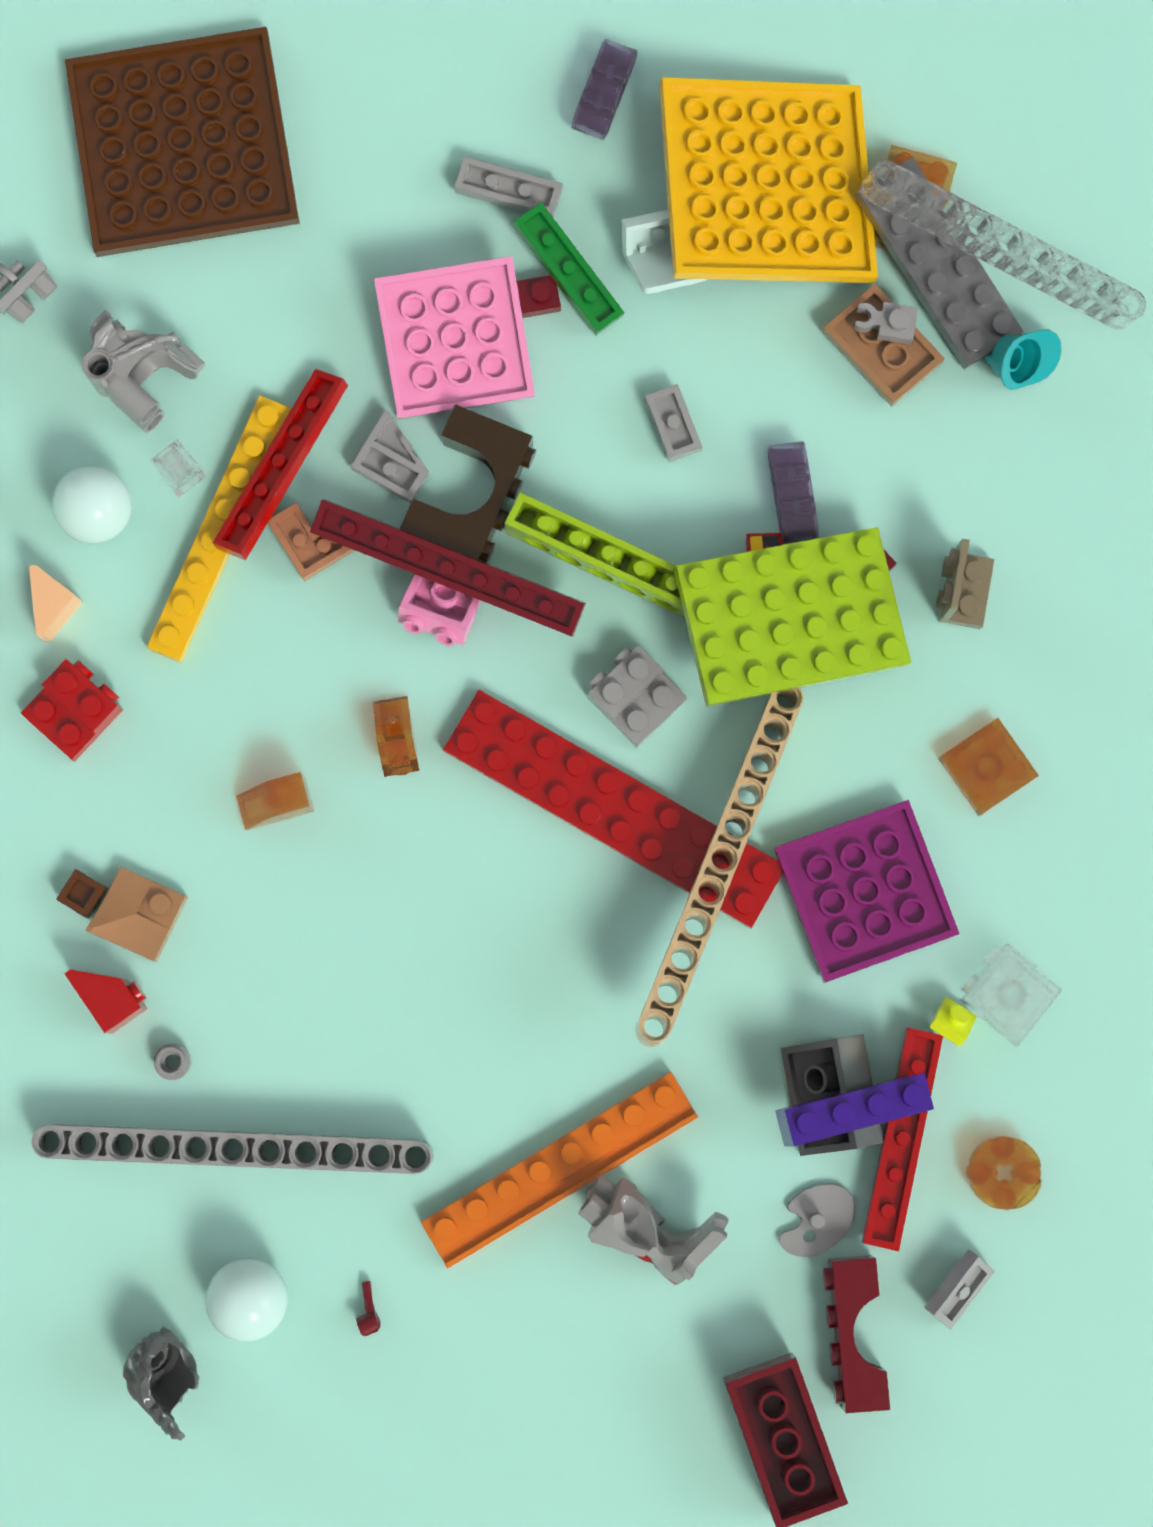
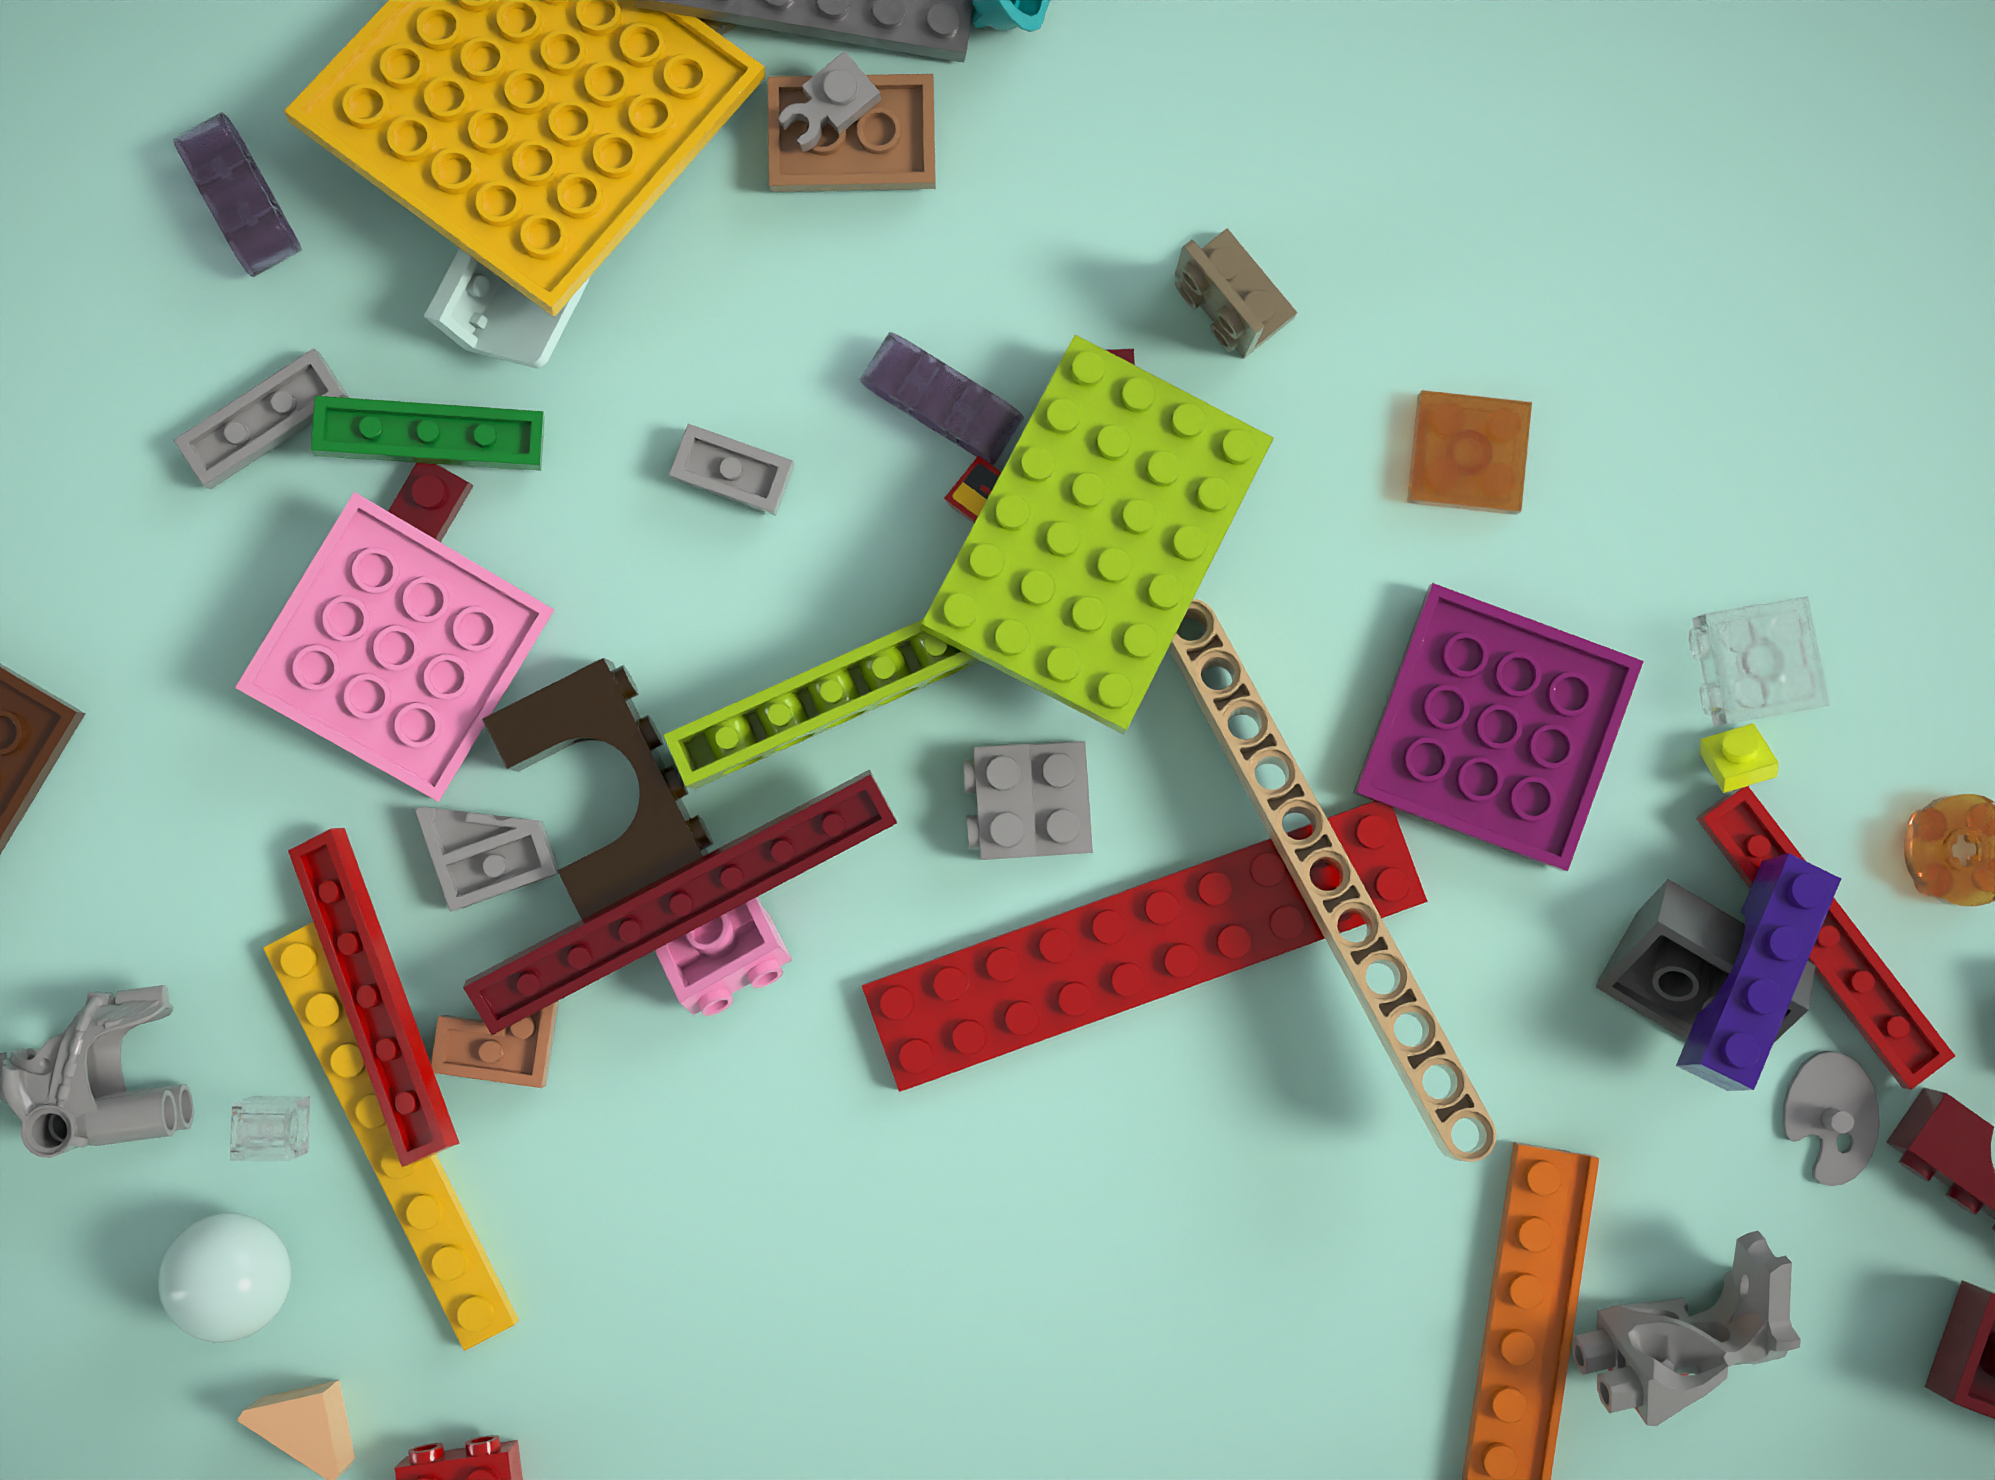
camera: 45 degrees left, 5 degrees up
(275, 801) = (792, 1349): clear orange slope -> none
(395, 736) = (834, 1137): clear orange slope -> none

